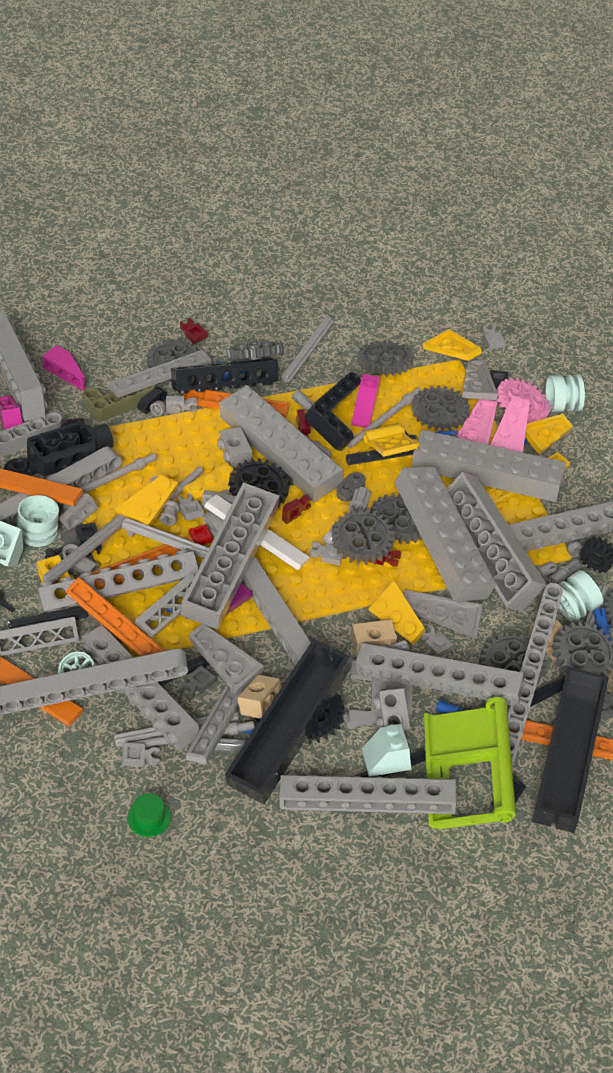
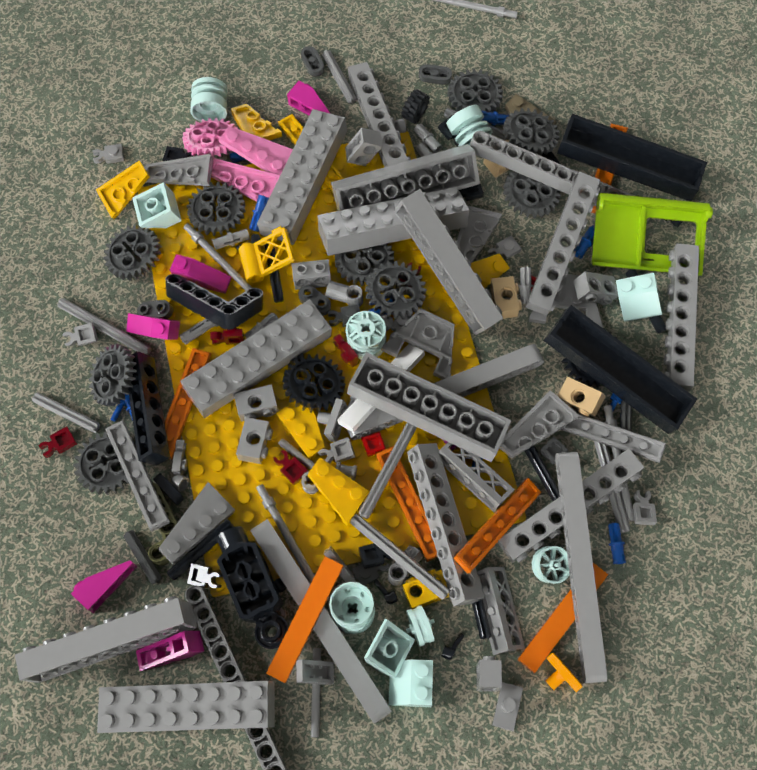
camera: 80 degrees left, 20 degrees up
(22, 569) = (420, 625): none -> light aqua wheel
(78, 397) = (142, 557): none -> dark grey axle
(93, 421) = (198, 551): none -> black axle
(101, 730) = (616, 544): none -> blue axle
(119, 416) = (198, 521): none -> light grey wing
(148, 816) = (707, 502): green piece -> none
(176, 473) = (291, 469): none -> dark red plate
(197, 447) = (254, 452): none -> light grey brick
(222, 333) = (66, 412): none -> light grey axle
(297, 335) = (83, 335): none -> light grey plate
(306, 377) = (153, 326): none -> dark pink slope
(311, 517) = (366, 341): none -> light aqua wheel
(320, 570) = (429, 334): none -> light grey wing
(326, 378) = (153, 309): none -> dark grey plate
(334, 509) = (343, 316): none -> dark grey plate
(376, 477) = (311, 273): none -> light grey brick
(392, 566) = (448, 262): none -> light grey brick
(409, 421) = (231, 239): none -> light grey pin
(432, 366) = (157, 207): none -> light aqua slope
(501, 611) = (472, 192): none -> black plate
(529, 505) = (363, 147): none -> light grey brick
(587, 473) = (305, 98): none -> dark pink slope

